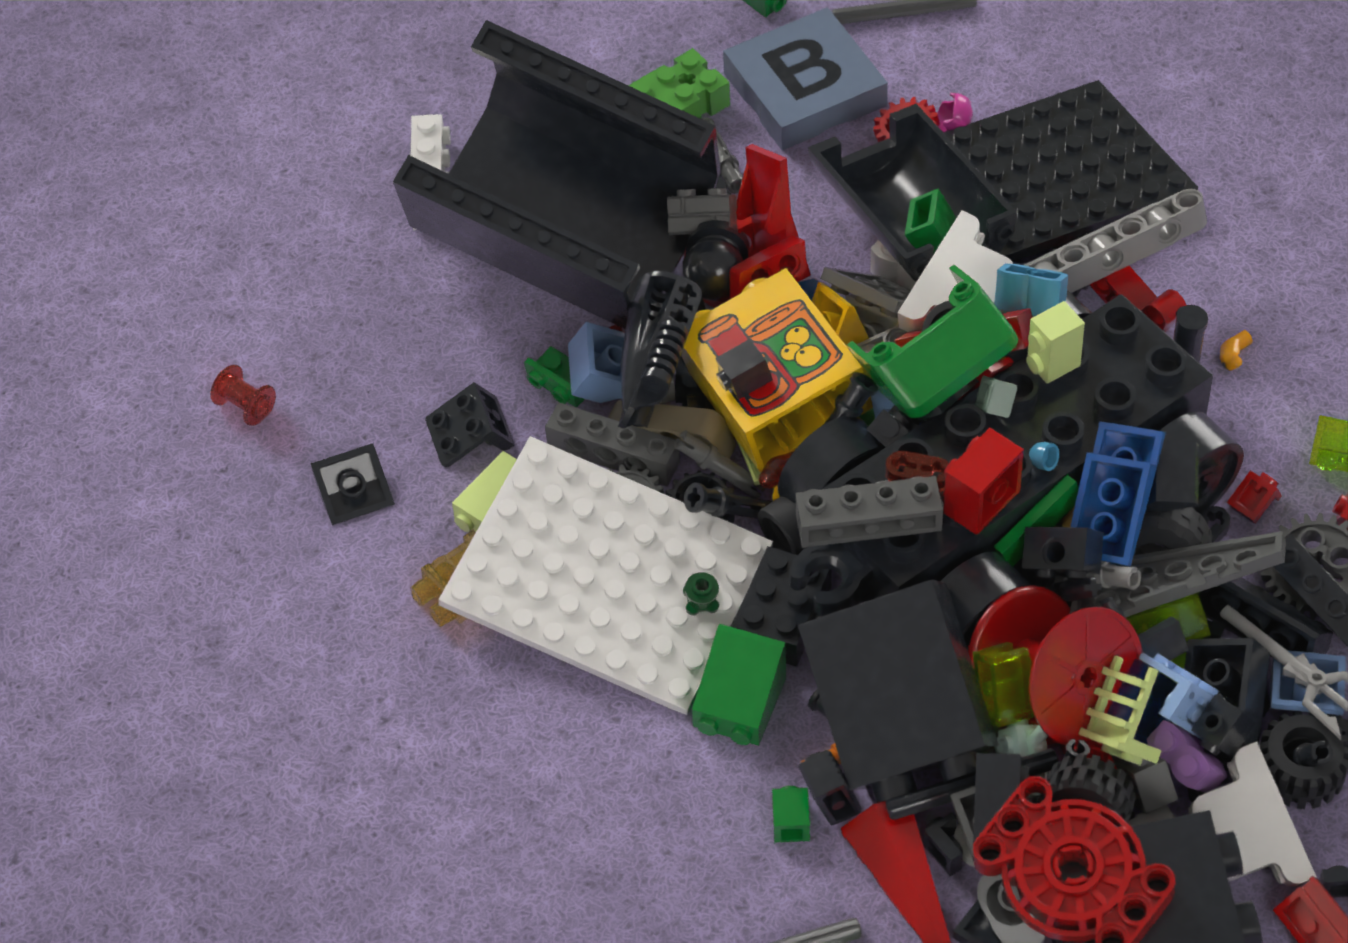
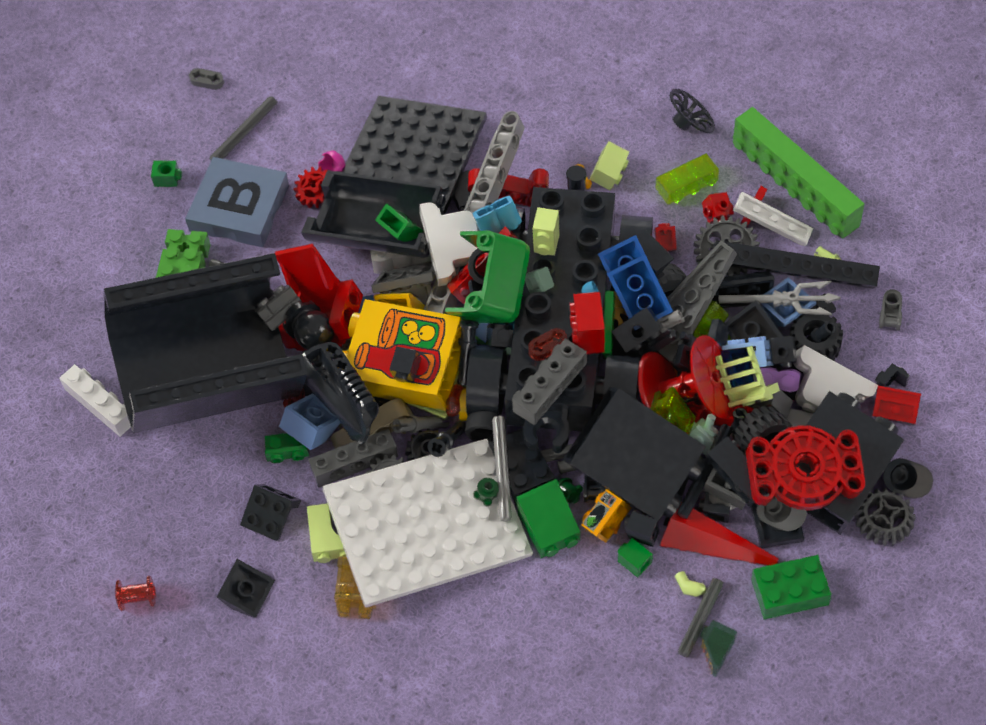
camera: 45 degrees left, 5 degrees up
(743, 584) = (501, 463): none -> light grey axle
(797, 737) = (606, 514): none -> light orange slope
(800, 679) = (570, 491): none -> dark green brick
(817, 904) = (689, 587): none -> yellowish green arm
(1280, 360) = (609, 166): none -> yellowish green brick

